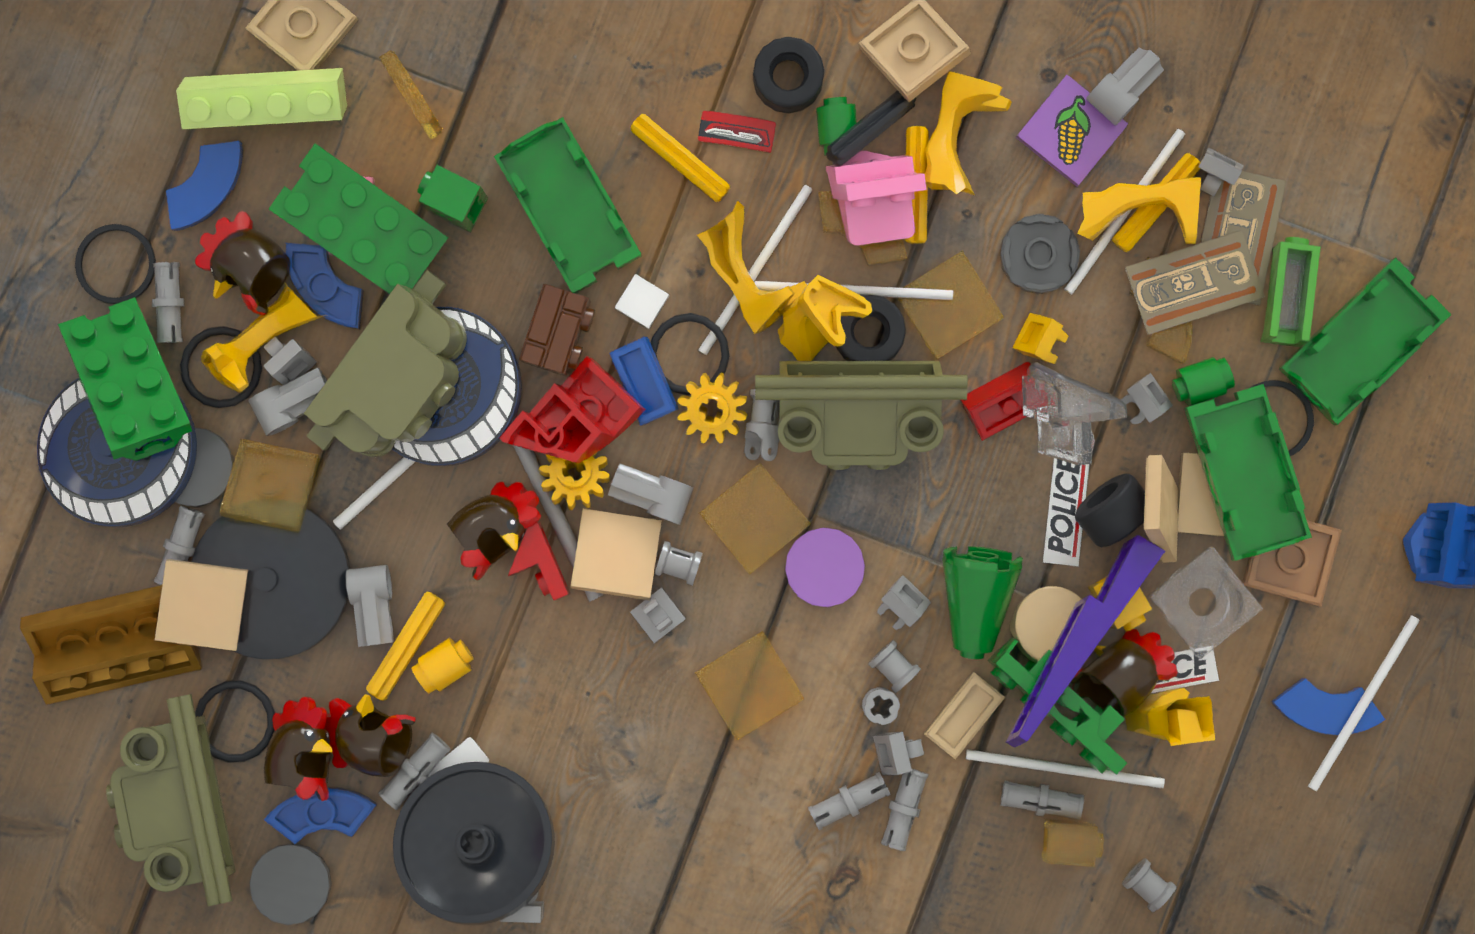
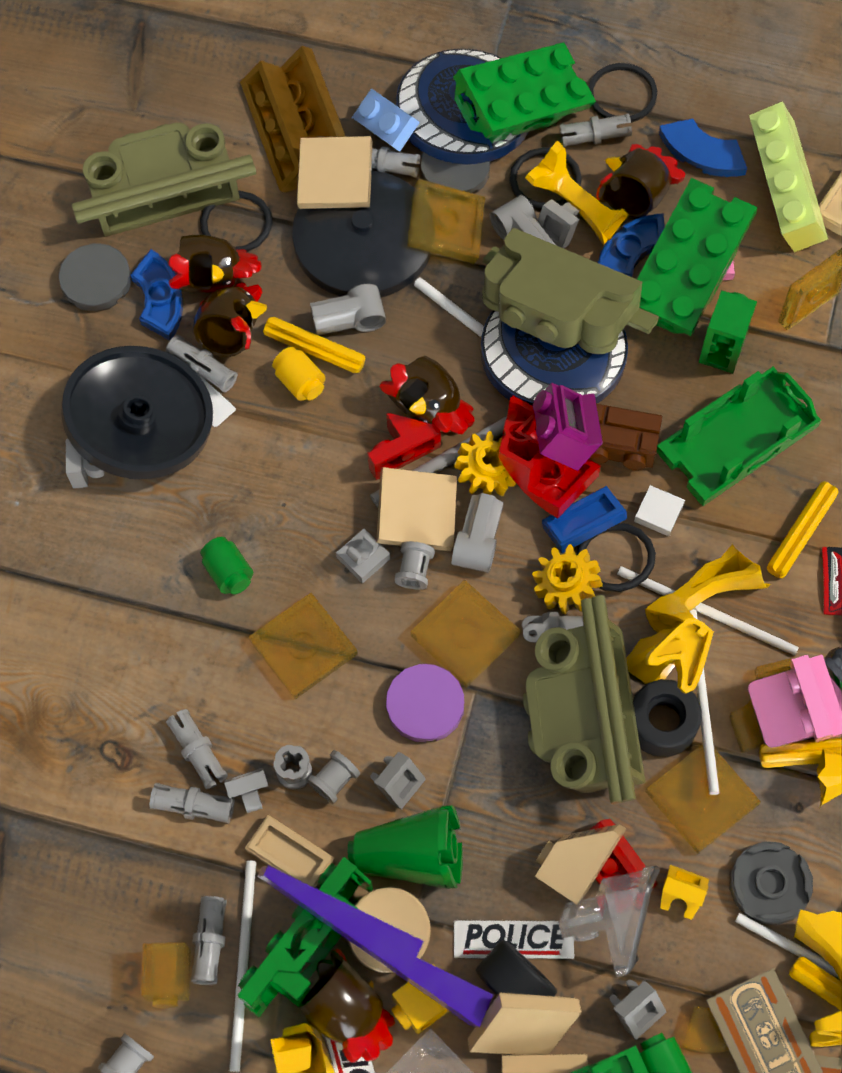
camera: 85 degrees right, 20 degrees down
(130, 540) = (385, 119): none -> light blue plate
(551, 386) = (567, 425): none -> magenta window
(657, 758) = (226, 565): none -> green brick
(1005, 436) = (577, 859): none -> tan slope

